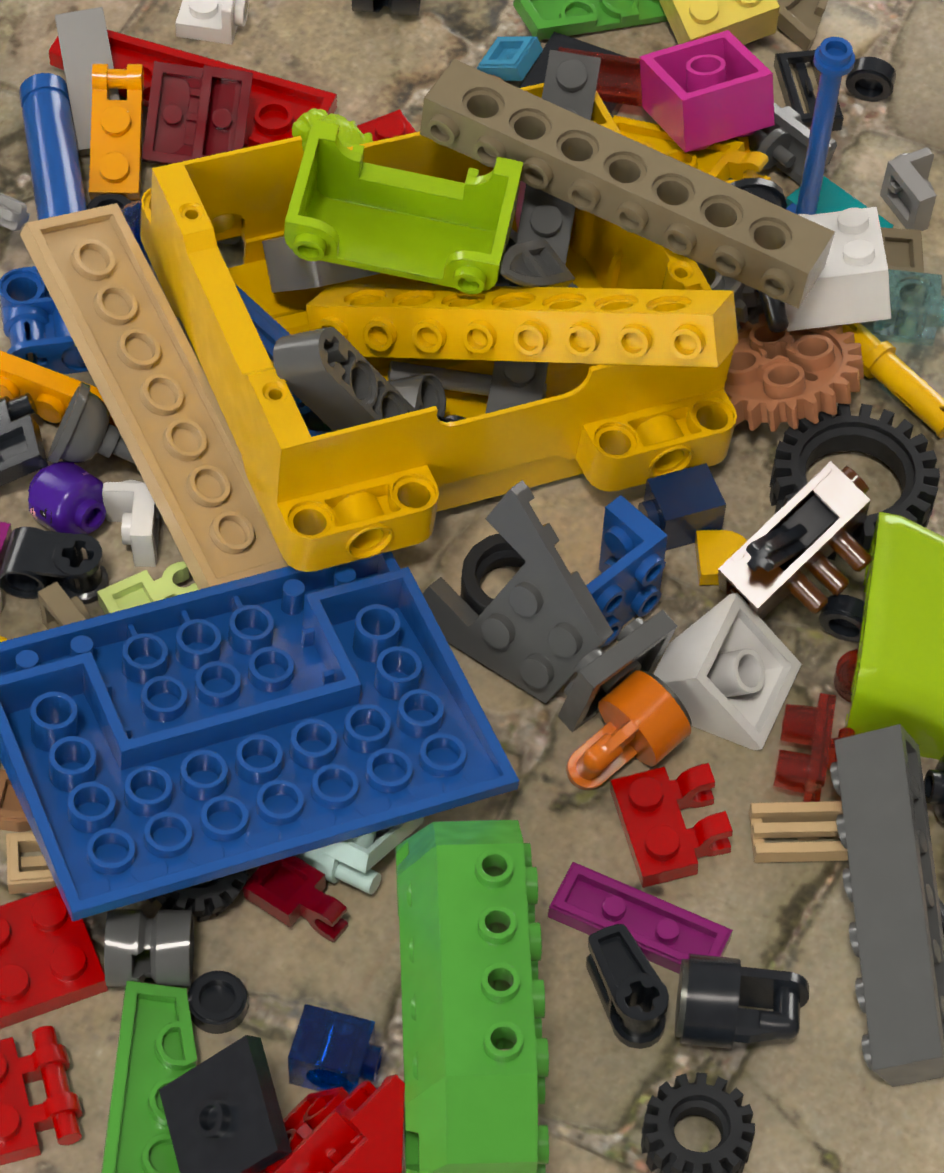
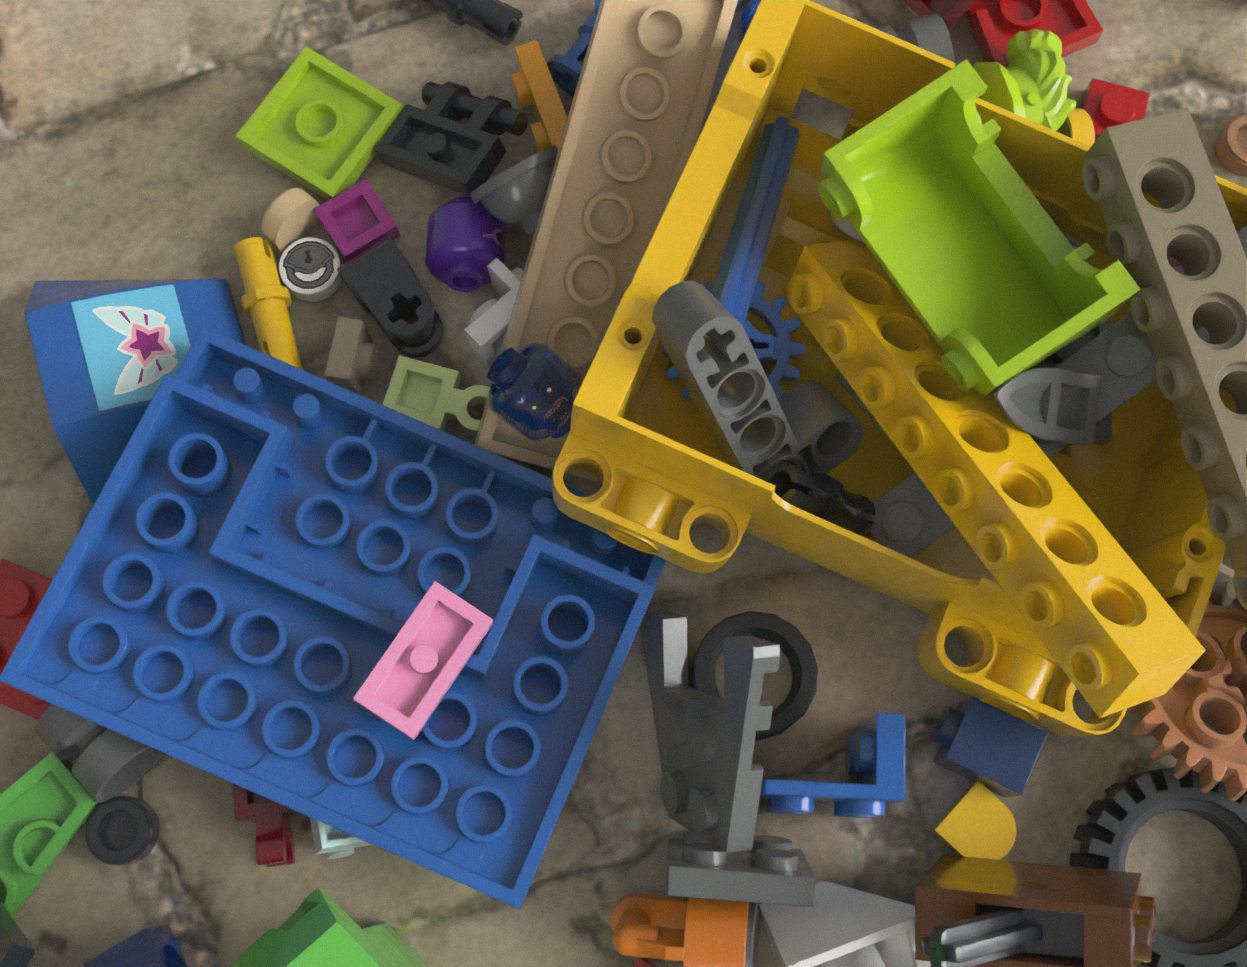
camera: 50 degrees right, 20 degrees up
(223, 517) = (534, 391): none -> clear blue head
(322, 693) = (423, 660): none -> bright pink plate

